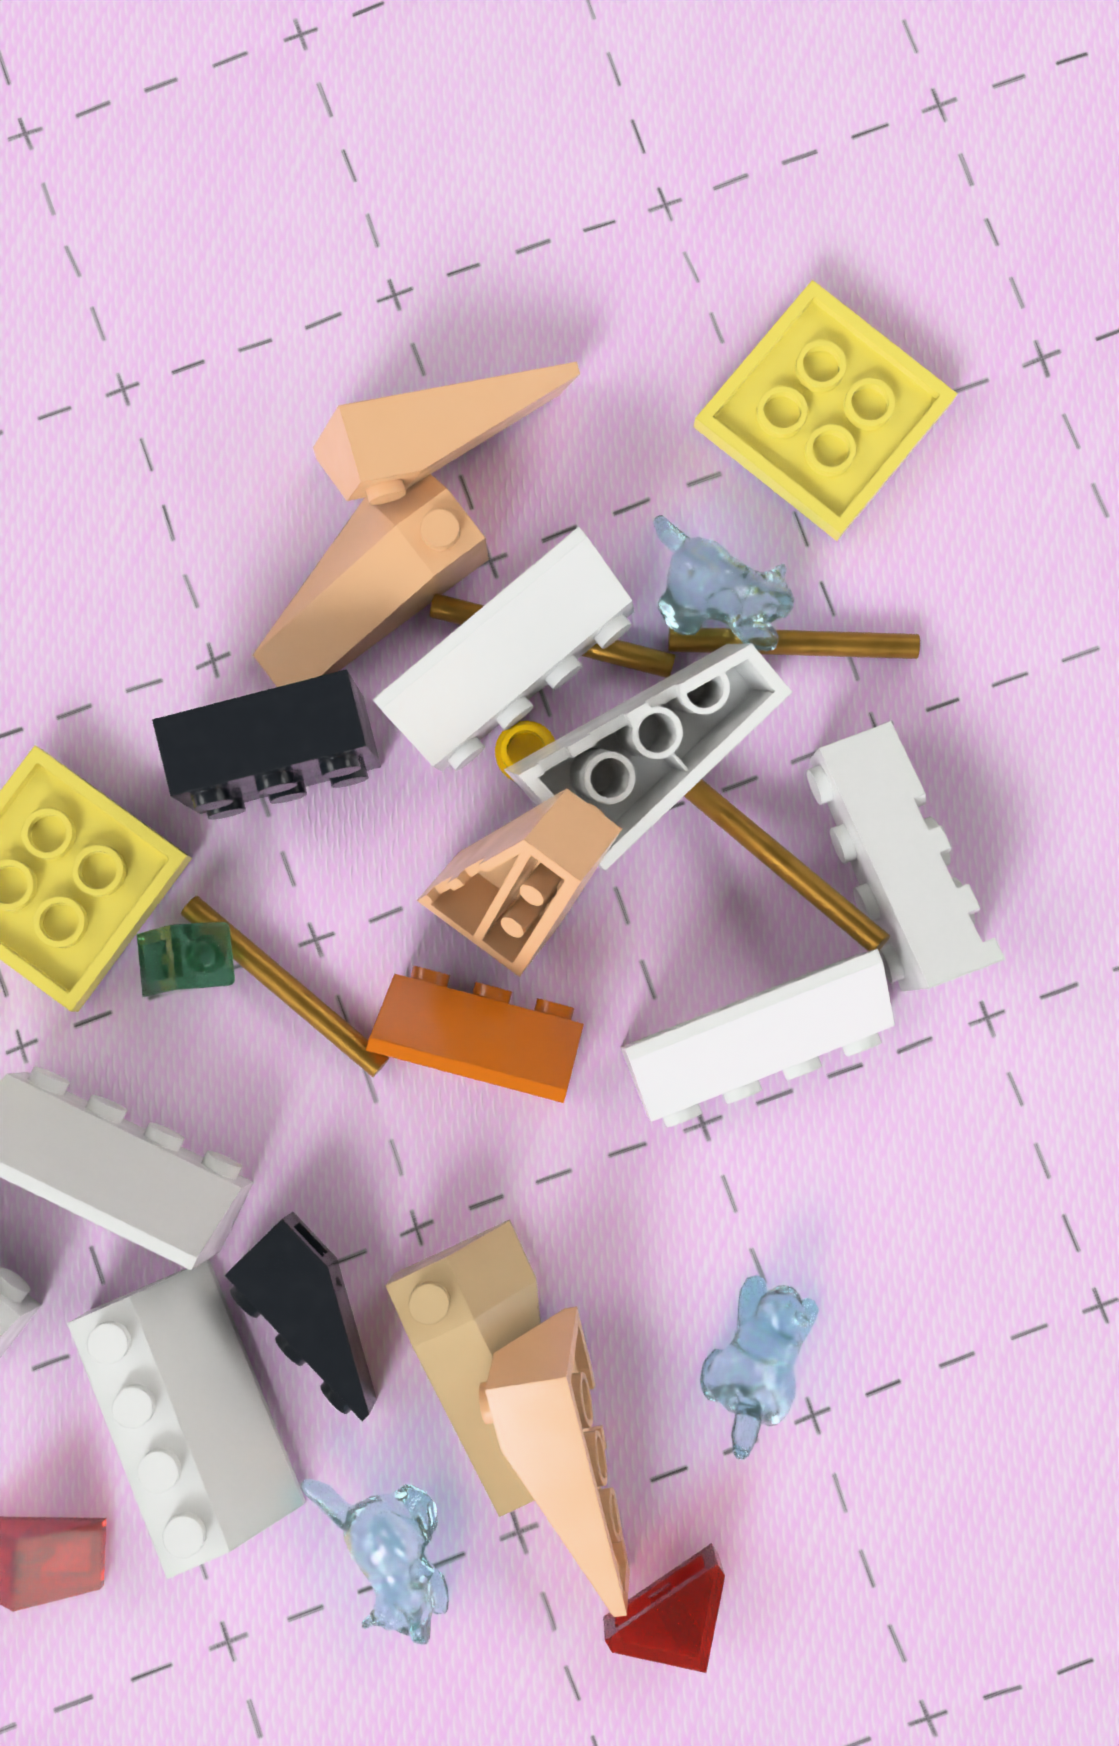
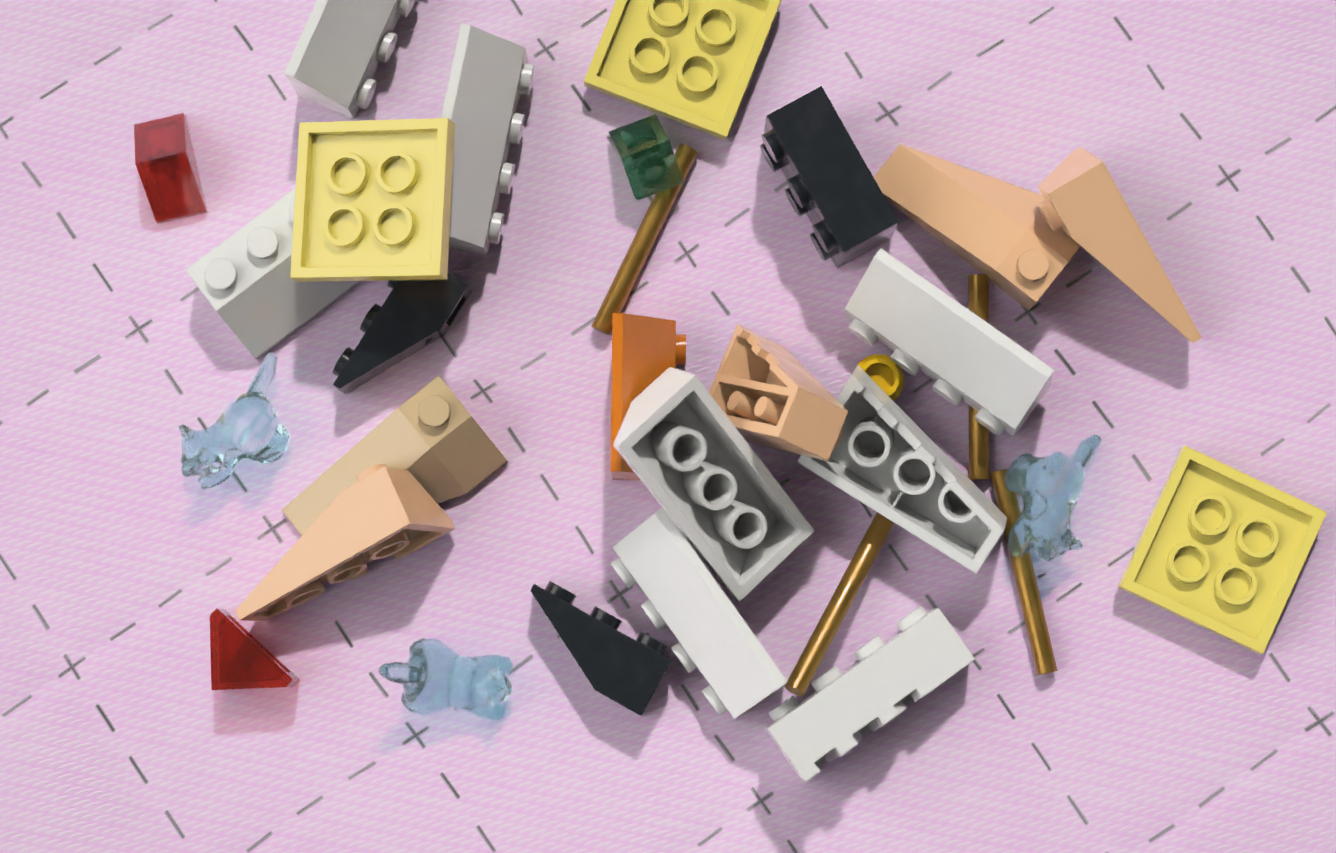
camera: 75 degrees right, 0 degrees up
(140, 1321) = (373, 200): none -> light yellow plate
(602, 984) = (710, 481): none -> white slope
(781, 1158) = (611, 661): none -> black slope

